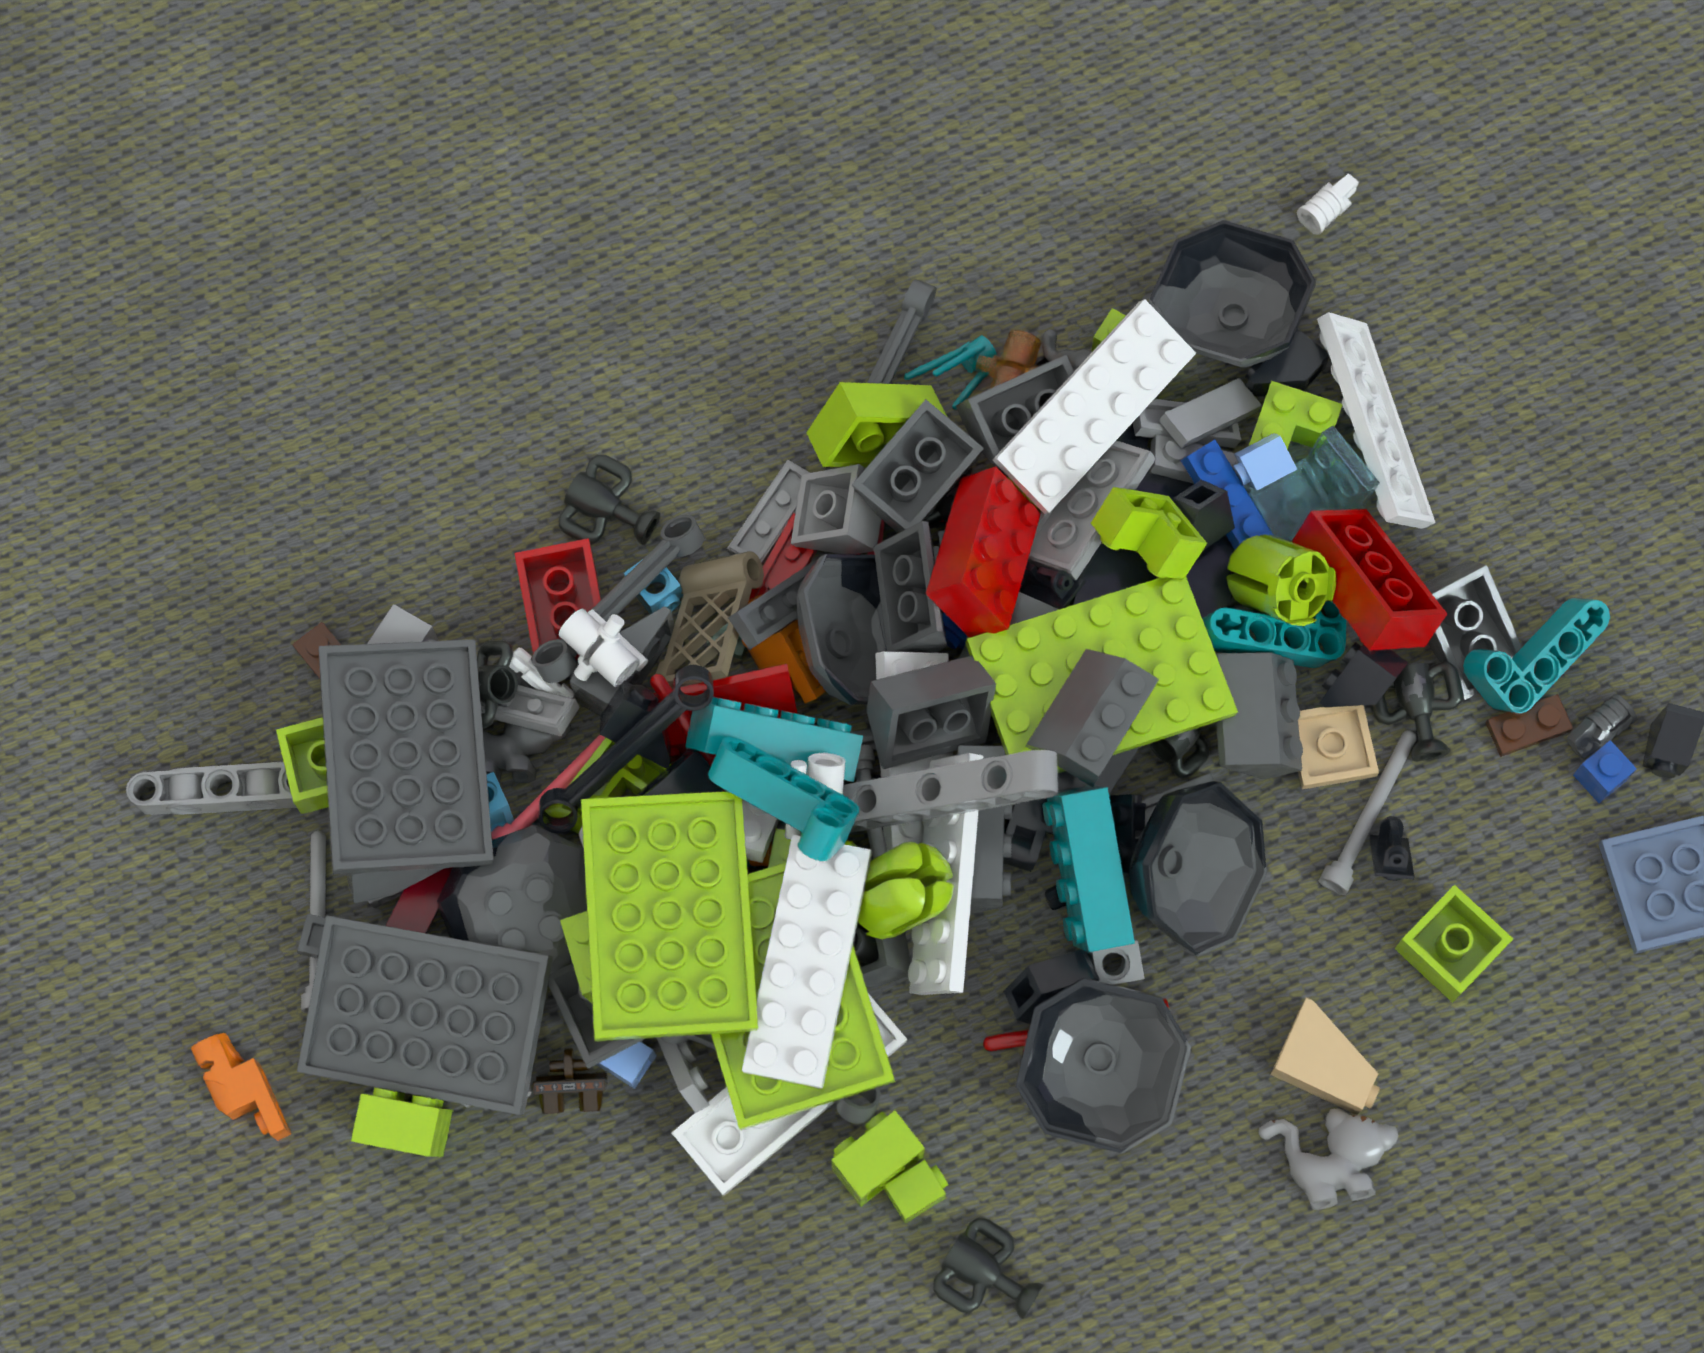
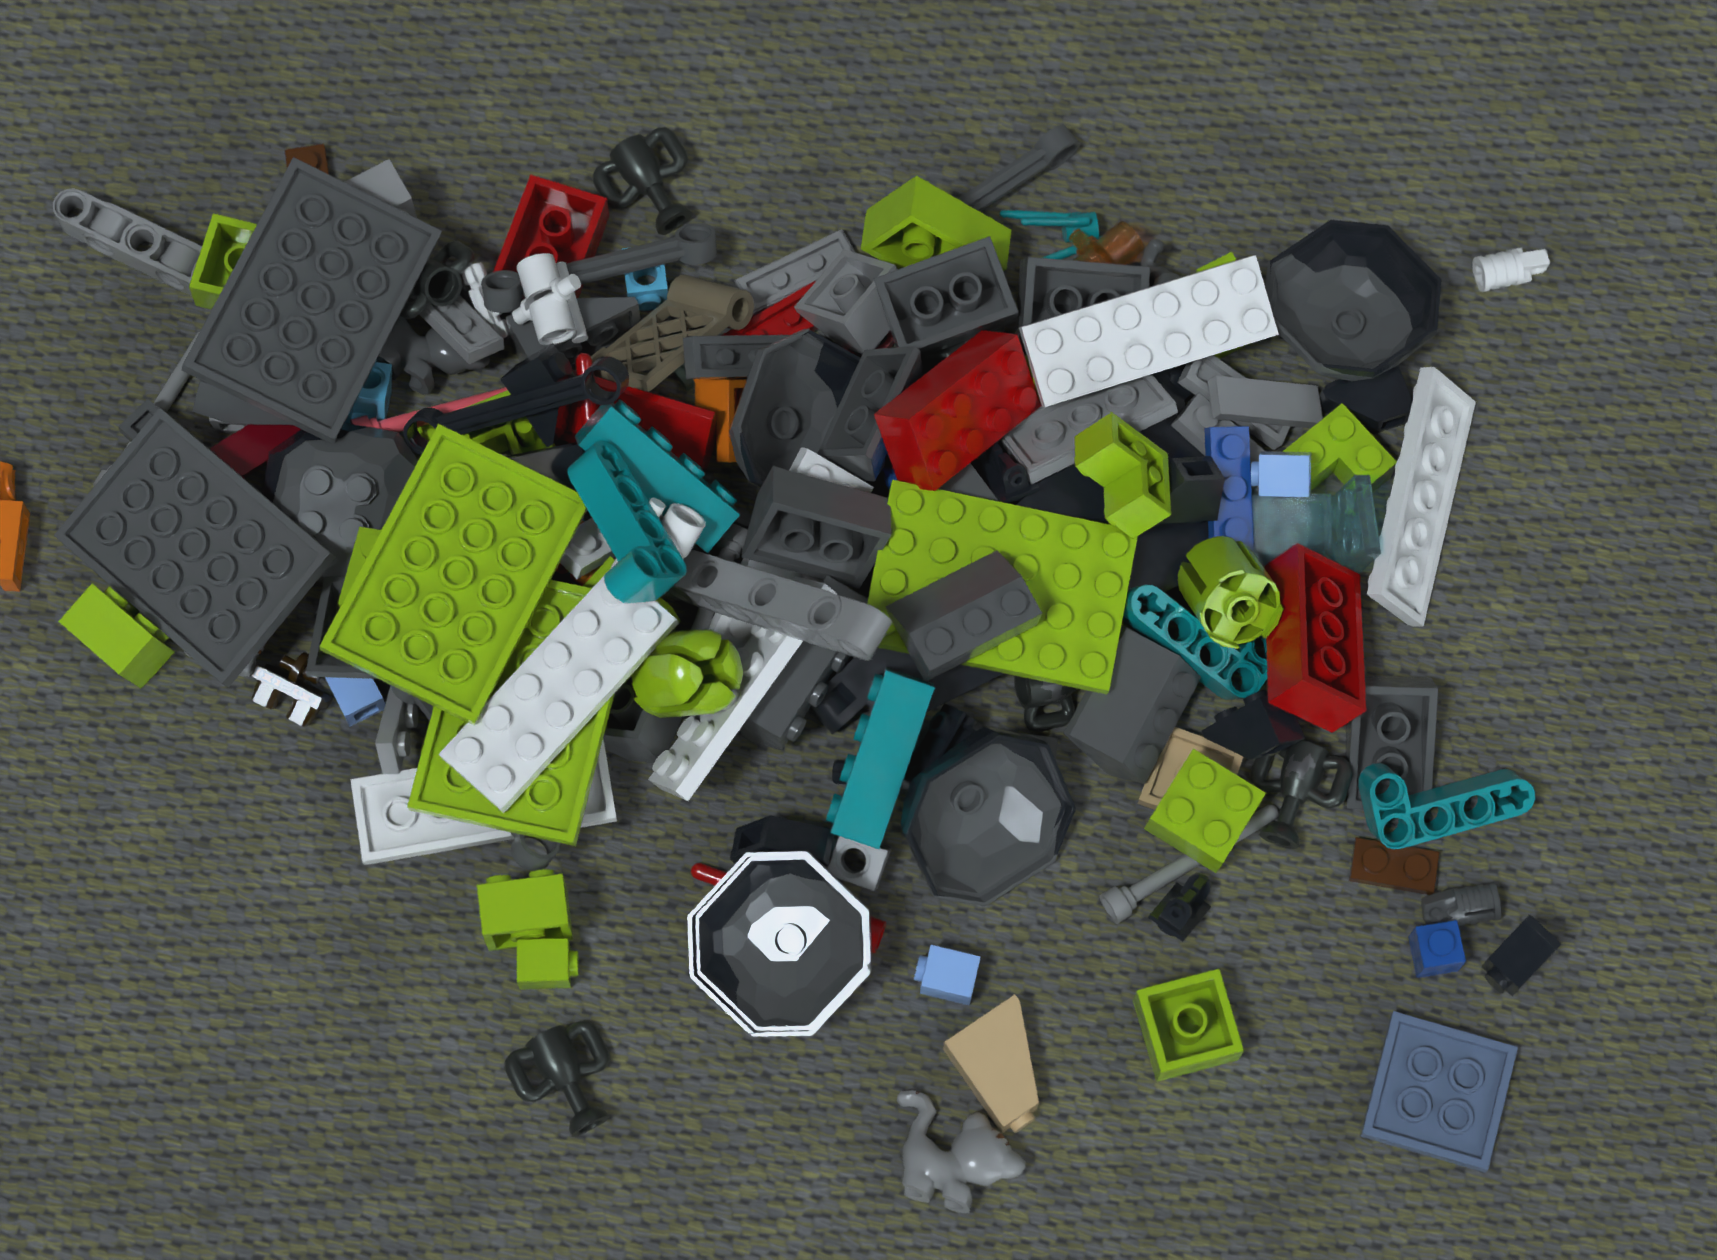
camera: 25 degrees right, 0 degrees up
(1241, 1012) = (947, 974): none -> light blue brick
(1364, 765) = (1204, 810): none -> lime brick

